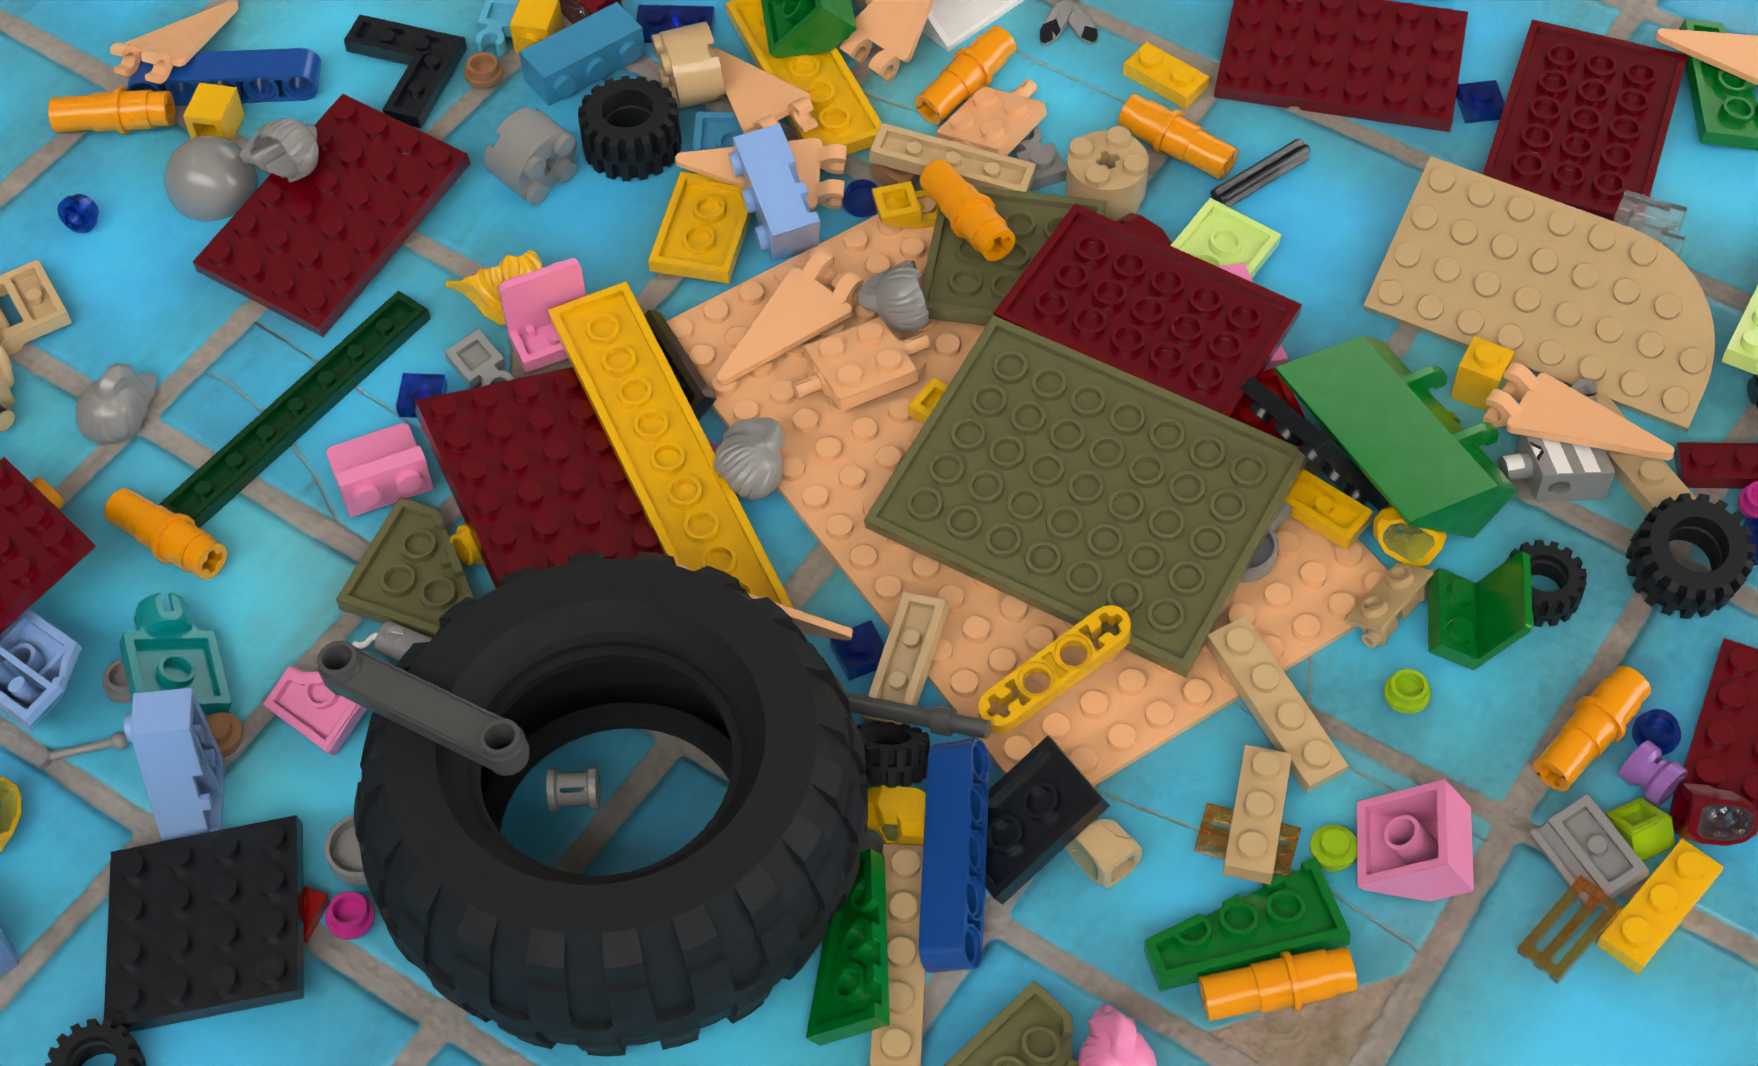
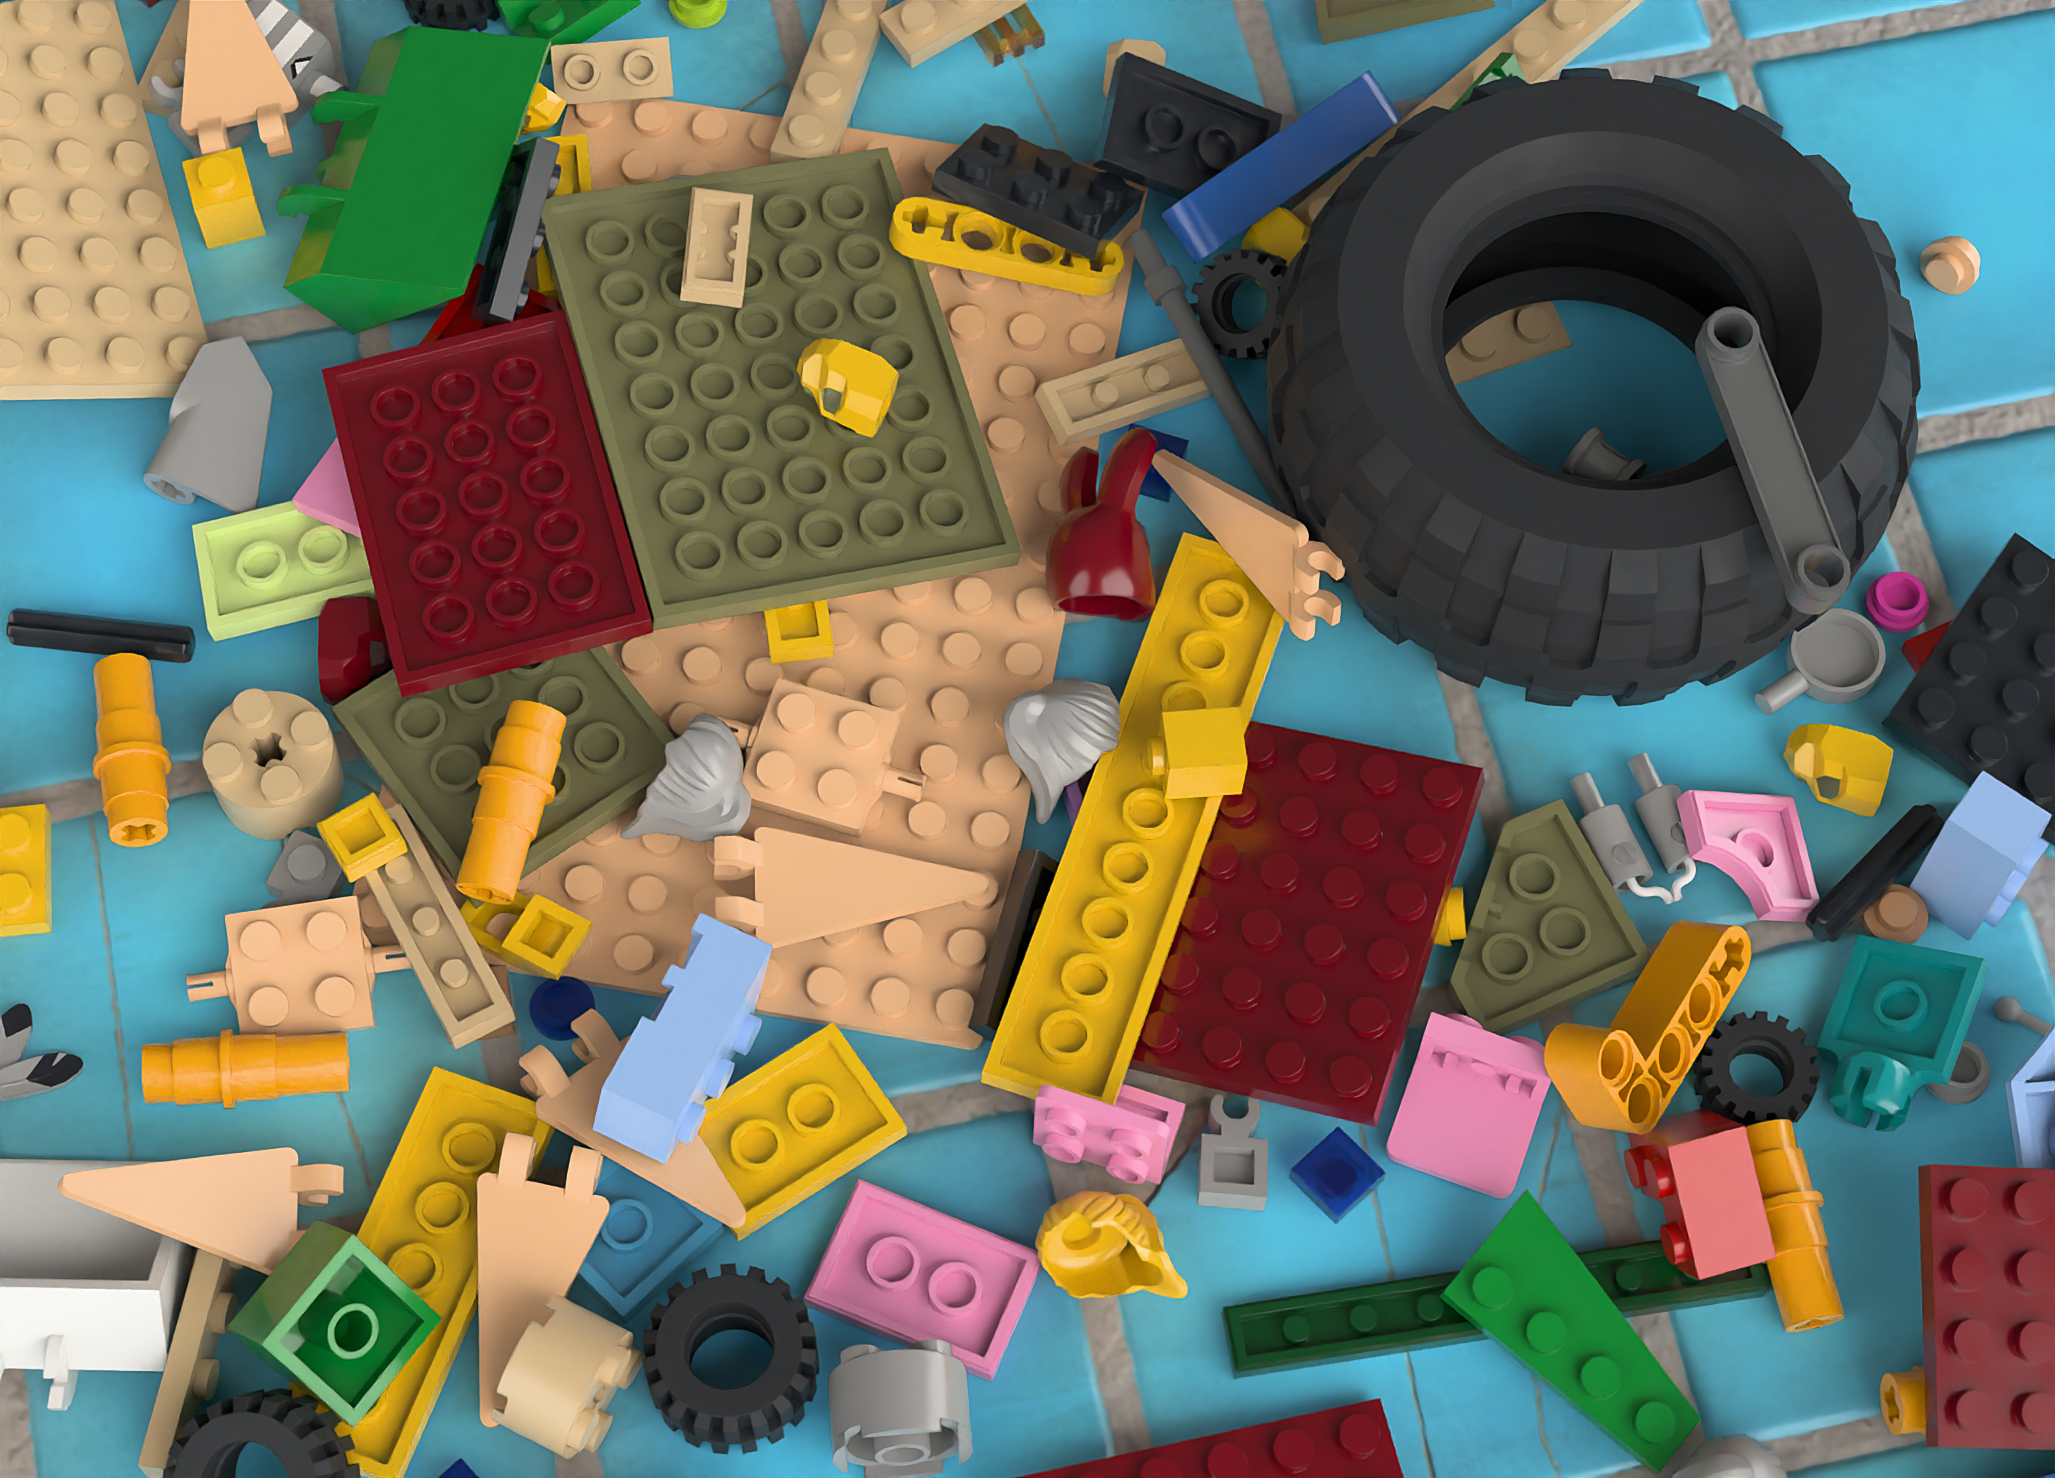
camera: 140 degrees left, 10 degrees up
(225, 496) = (1708, 1192): none -> brick
(234, 573) = (1770, 1041): none -> black tyre
(245, 743) = (1874, 873): none -> black axle
(252, 406) = (1560, 1325): none -> green wing
(304, 552) = (1633, 1068): none -> light orange beam
(311, 784) = (1840, 766): none -> yellow rock
(584, 226) = (923, 1278): none -> bright pink tile
(661, 483) = (1199, 753): none -> yellow brick
(826, 552) = (1099, 548): none -> dark red piece
(1020, 161) = (362, 837): none -> yellow tile
(1035, 496) = (848, 383): none -> yellow rock
(1080, 705) = (1038, 190): none -> black plate
(1187, 504) = (716, 247): none -> tan plate
(1325, 274) = (216, 431): none -> light grey panel

